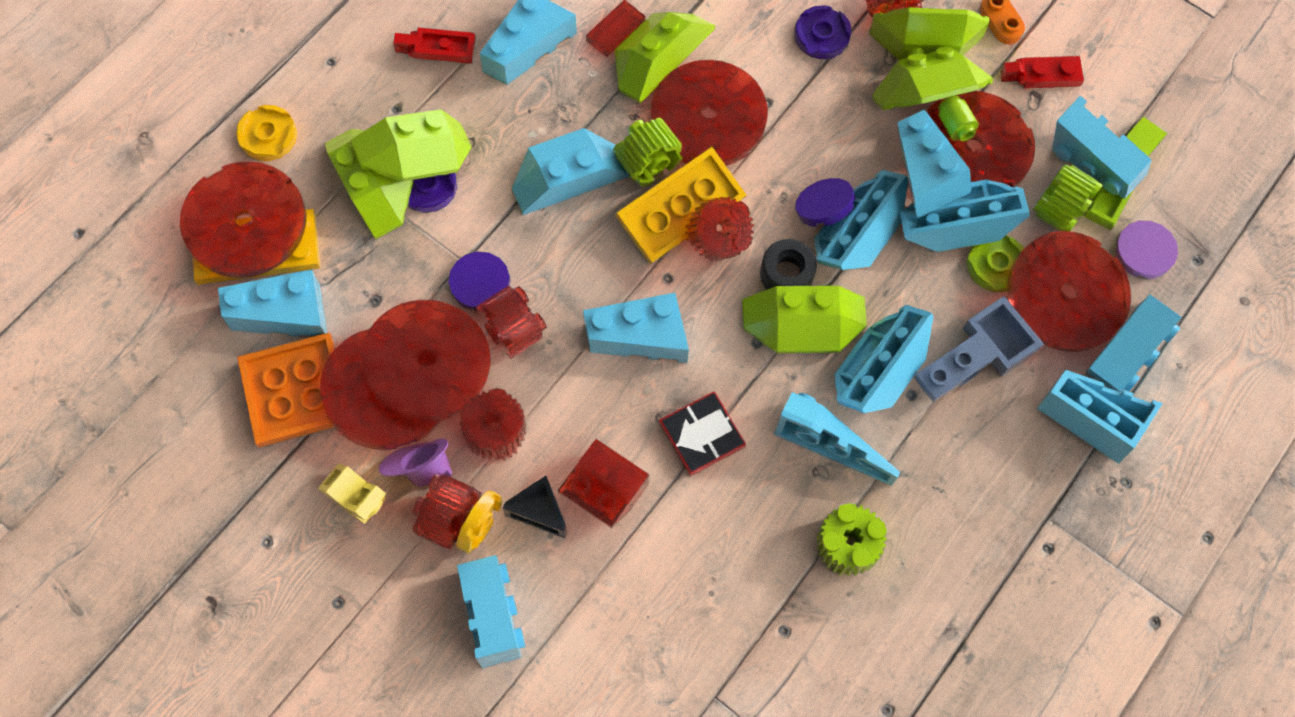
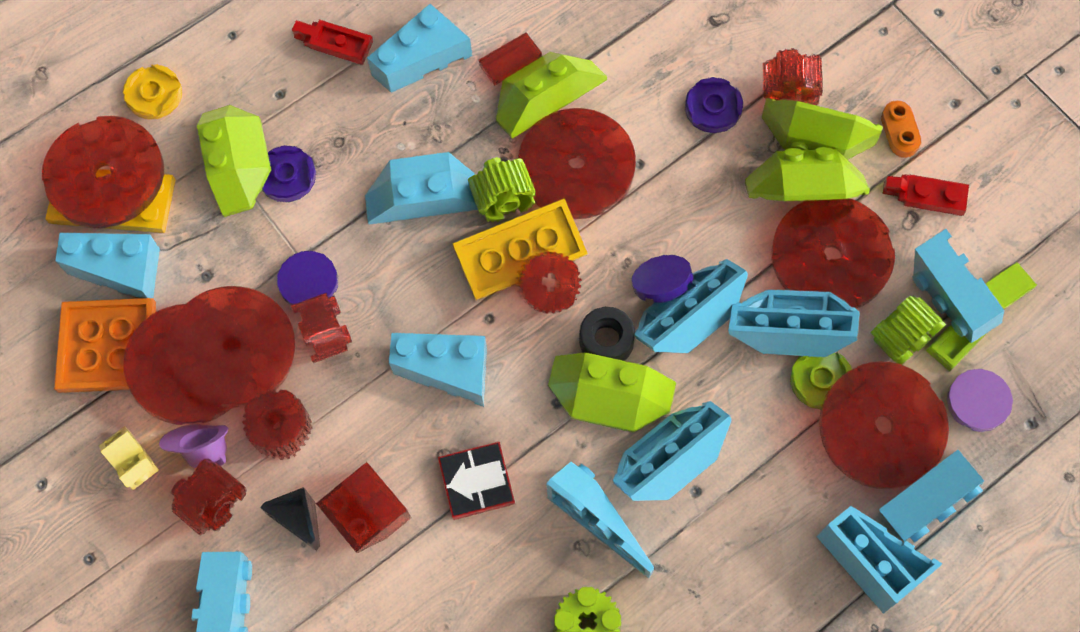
camera: 20 degrees right, 0 degrees up
(412, 146) = (279, 136): wedge -> none
(479, 522) = (234, 515): yellow tile -> none
(931, 164) = (773, 266): medium azure wedge -> none
(958, 118) = (819, 223): lime brick -> none
(996, 338) = (794, 454): sand blue plate -> none

